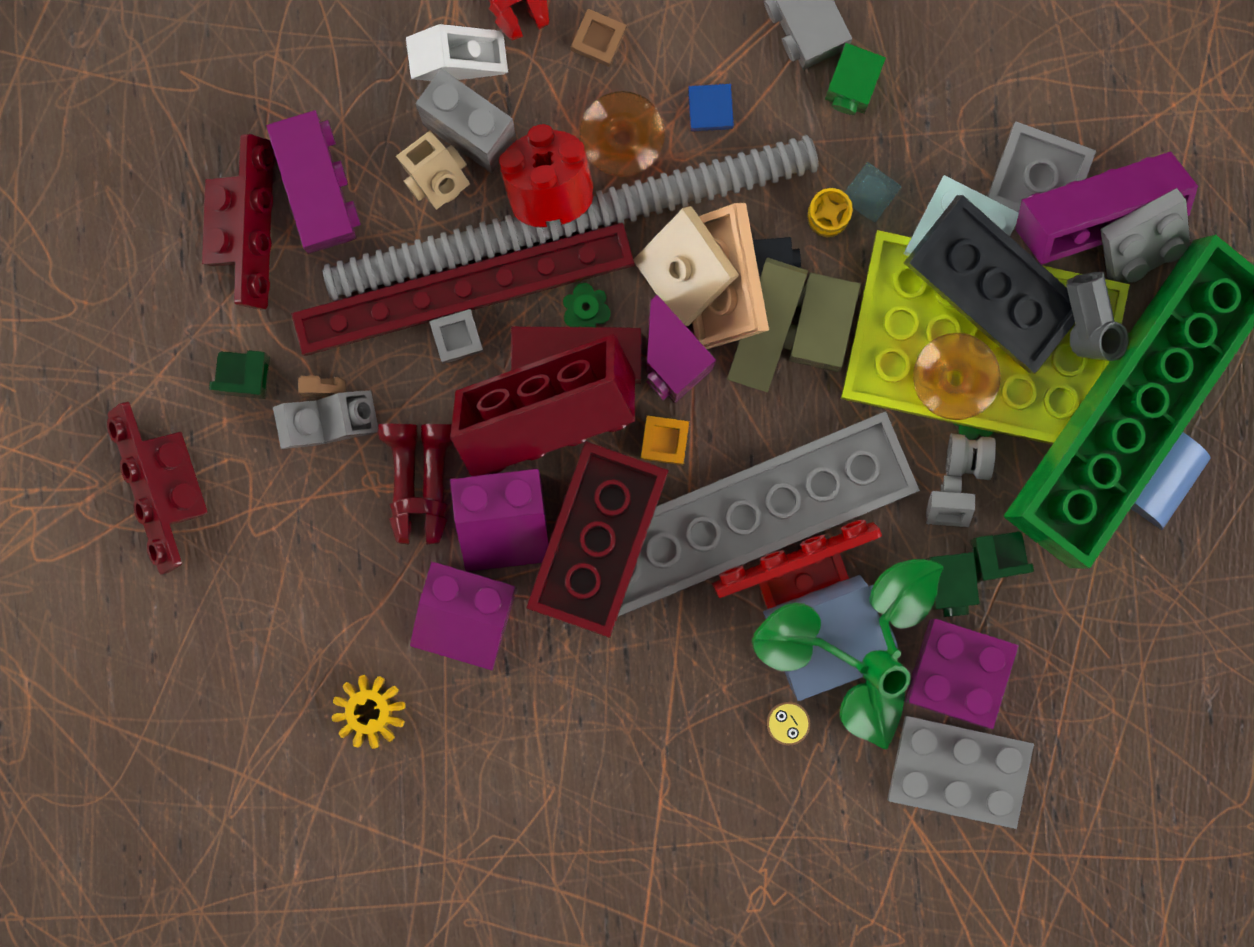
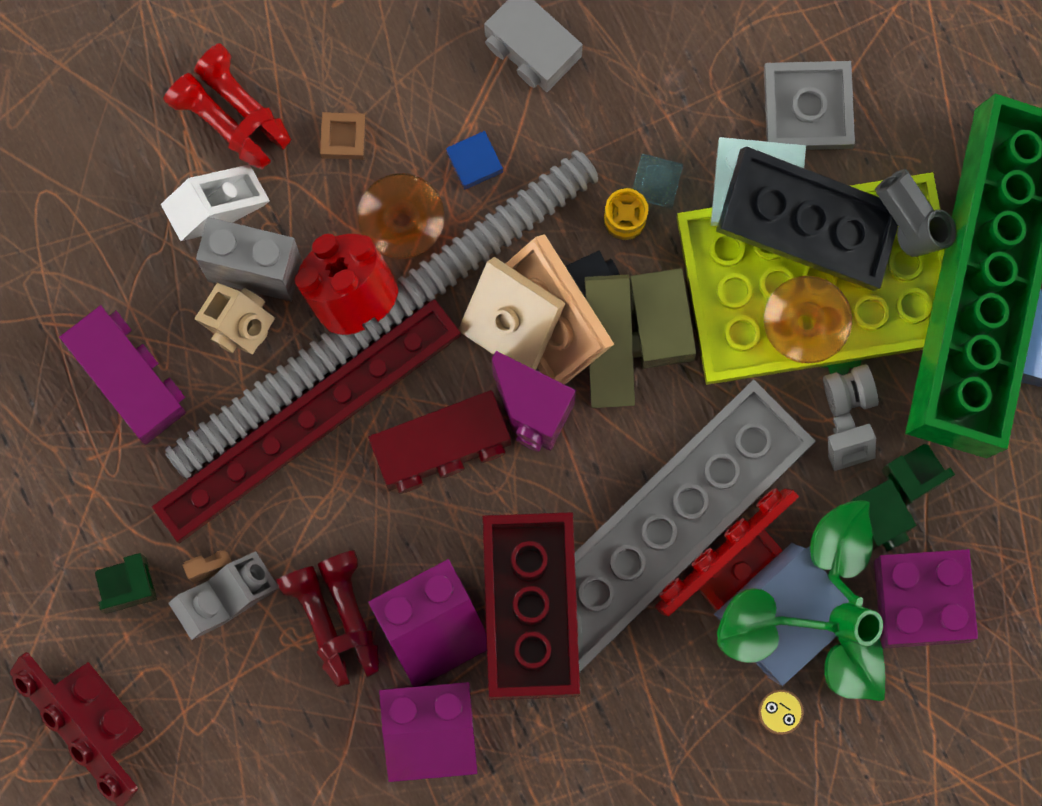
camera: 20 degrees left, 5 degrees down
(240, 222) = (68, 439): dark red bracket -> none
(456, 336) = (318, 467): light grey plate -> none
(544, 406) = (429, 499): dark red brick -> none
(584, 294) = (422, 382): green plant -> none
(665, 440) = (556, 488): light orange plate -> none
(854, 79) = (599, 82): green brick -> none
(960, 772) = (962, 693): light grey plate -> none
(1072, 216) = (882, 109): magenta brick -> none
(1146, 238) = (931, 122): light grey plate -> none

